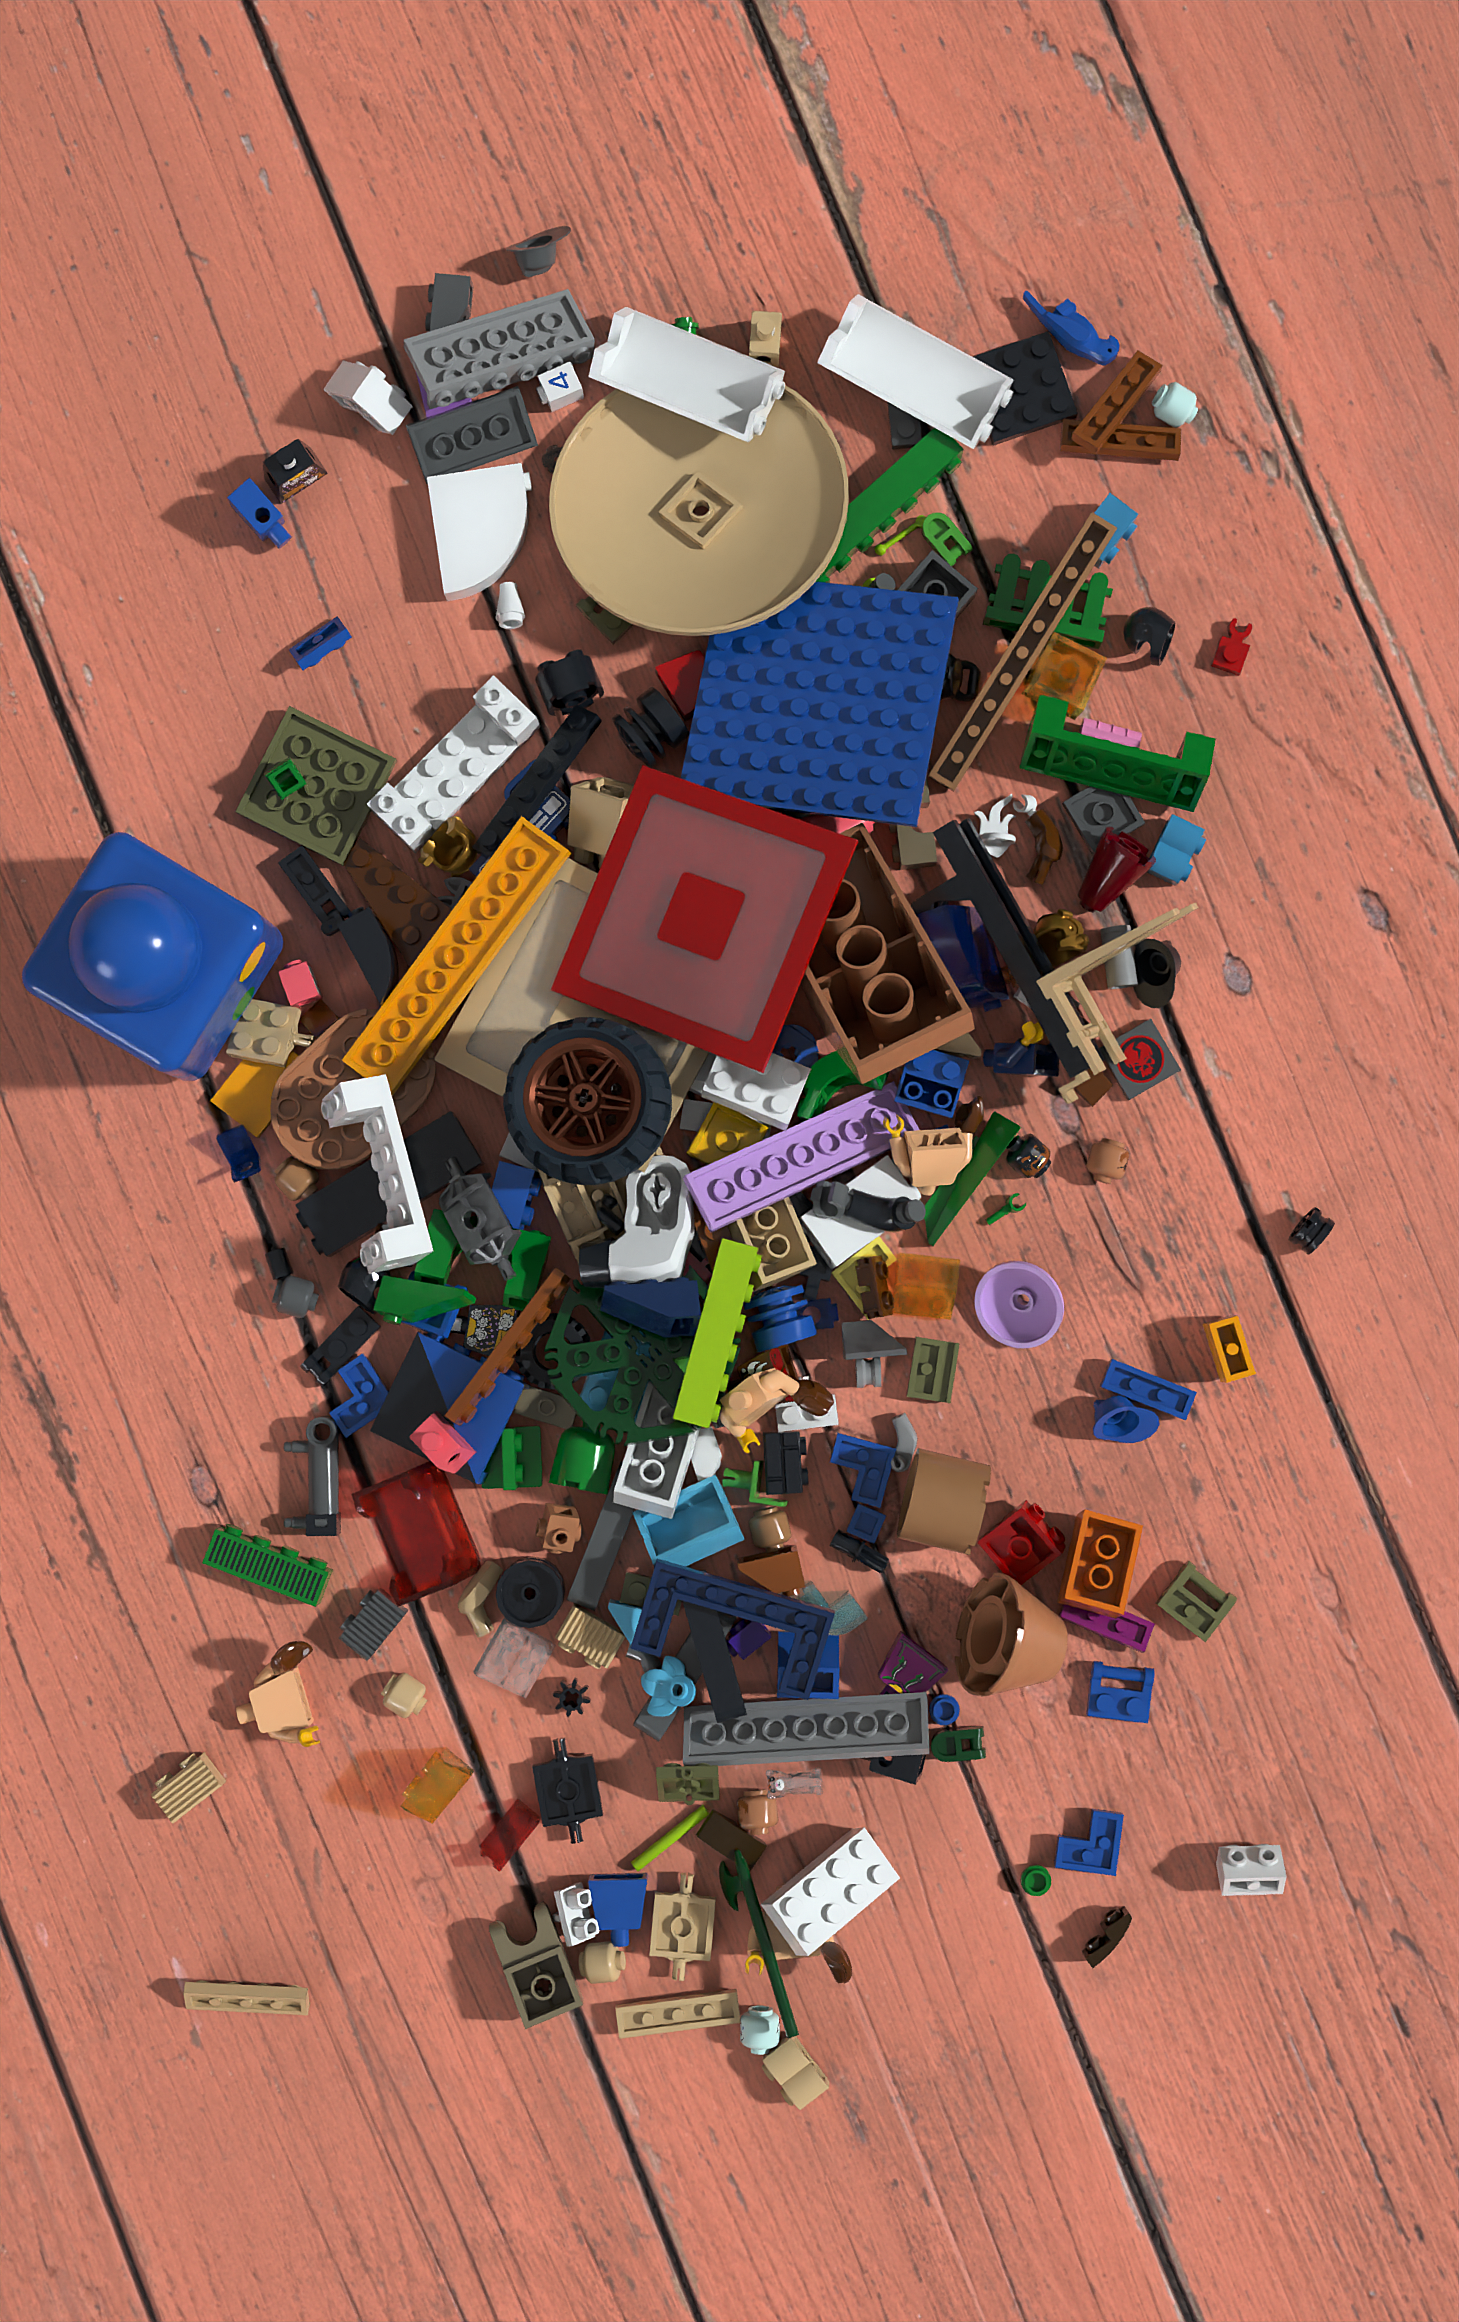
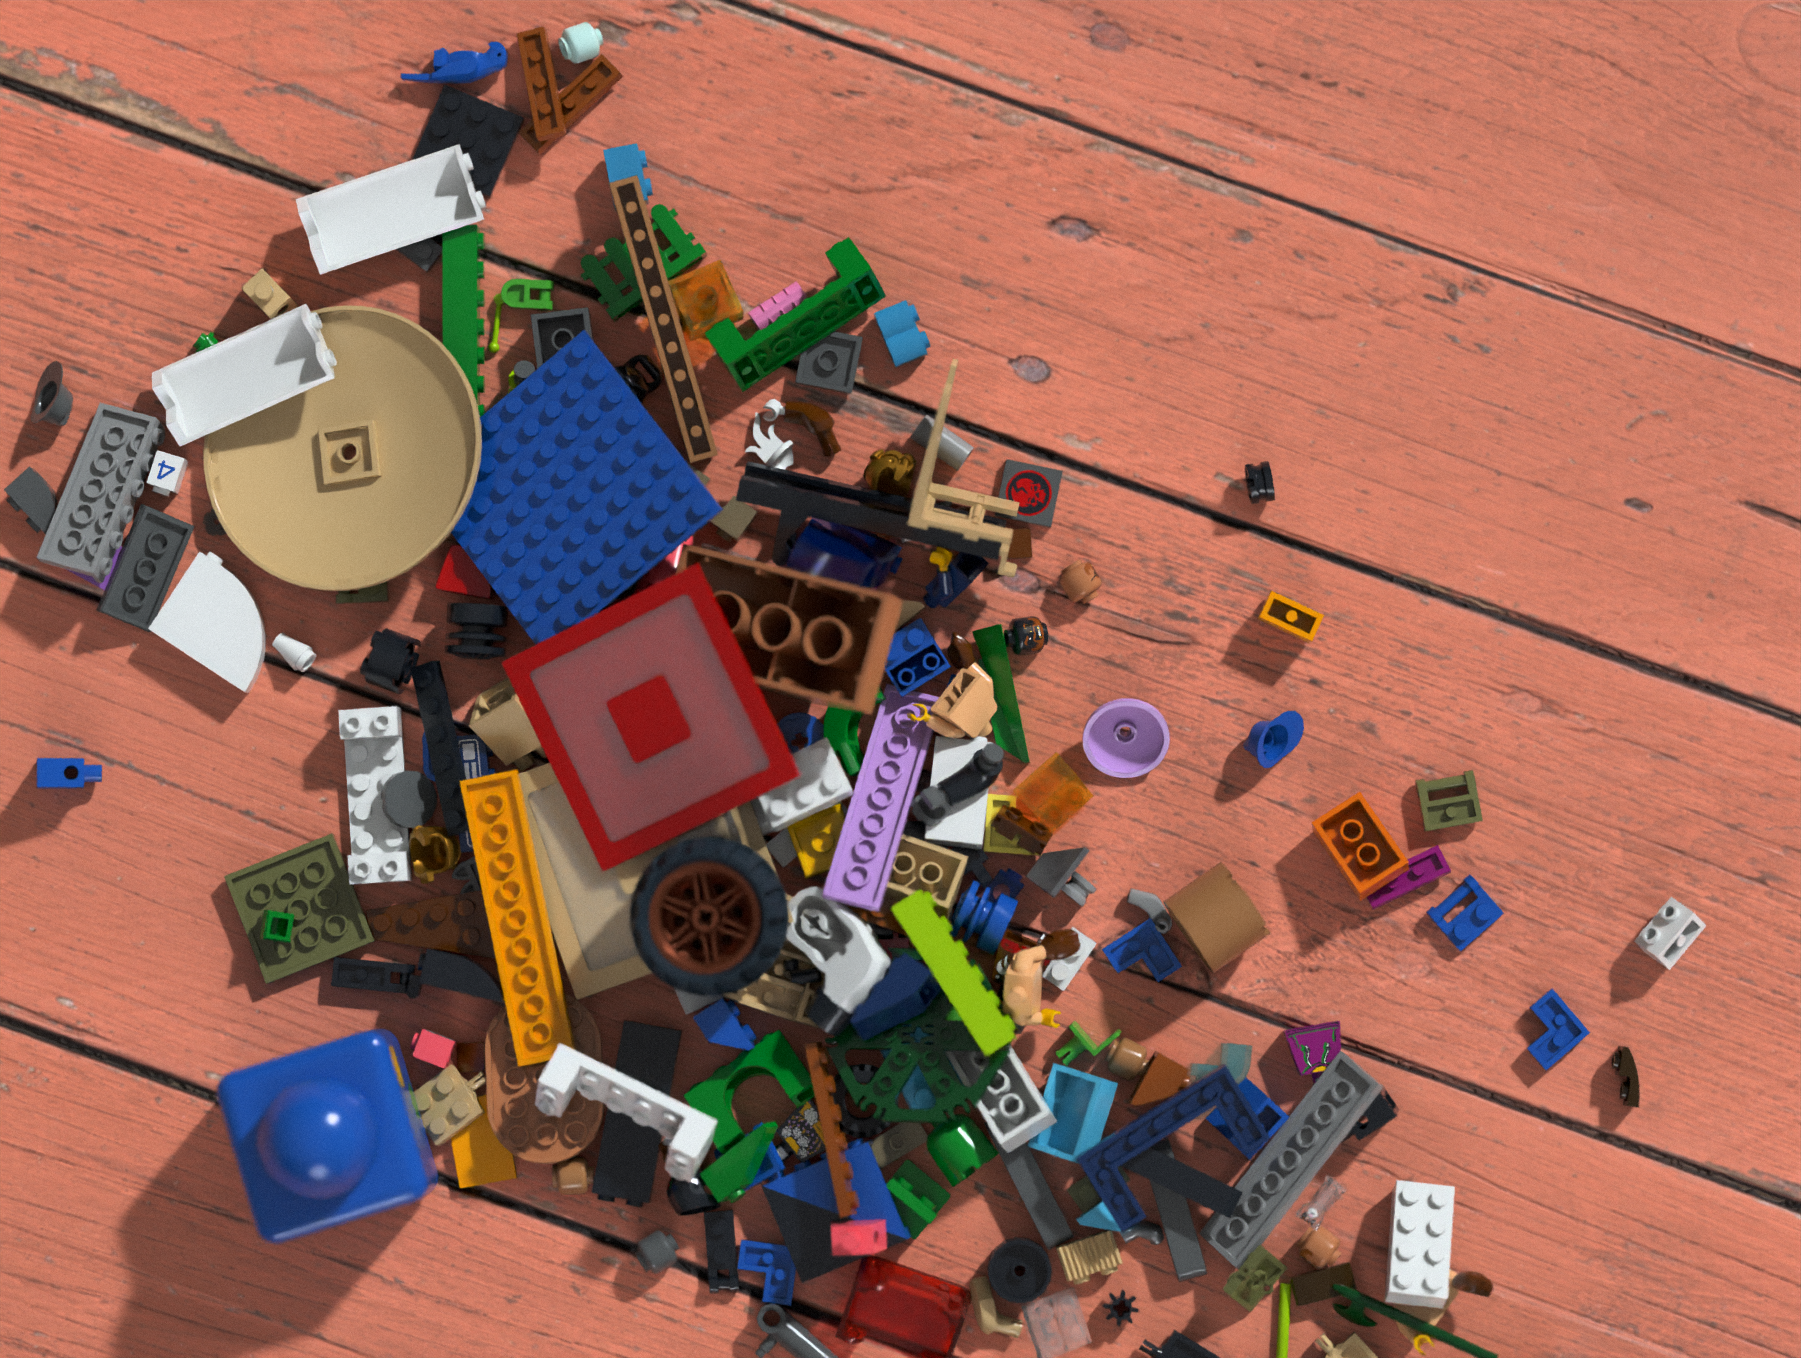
camera: 50 degrees left, 0 degrees up
(239, 1152) = (517, 1200): clear blue bracket -> none
(279, 1263) = (622, 1243): black hinge -> none
(292, 470) = (53, 720): black torso -> none
(320, 643) = (198, 813): blue plate -> none
(368, 393) = (49, 617): white brick -> none
(474, 793) = (408, 799): none -> dark grey tile
(493, 1236) = (742, 1070): flat silver plate -> none
(558, 1528) = (992, 1209): nougat brick -> none
(664, 1686) = (1170, 1233): medium azure plate -> none
(706, 1454) = (1033, 1057): white slope -> none
(747, 1638) = (1189, 1144): dark purple brick -> none
(783, 1462) = (1088, 1006): black brick -> none
(859, 1551) = (1200, 1009): black axle -> none
(866, 1523) = (1184, 986): blue plate -> none
(932, 1369) = (1117, 841): olive plate -> none
(944, 1709) = (1366, 1049): blue plate -> none
(947, 1744) = (1392, 1069): dark green plate -> none
(1006, 1209) = (1050, 686): green hand -> none
(1007, 1638) = (1353, 958): nougat cone -> none
(1023, 1542) = (1298, 887): red plate -> none
(1035, 1880) = (1544, 1092): green plate -> none
(1113, 869) = (876, 390): dark red cone -> none
(1148, 1389) = (1268, 699): blue plate -> none
(1149, 626) = (728, 206): black helmet -> none
(1156, 972) = (975, 425): black piece -> none
(1231, 651) = (796, 162): red plate -> none

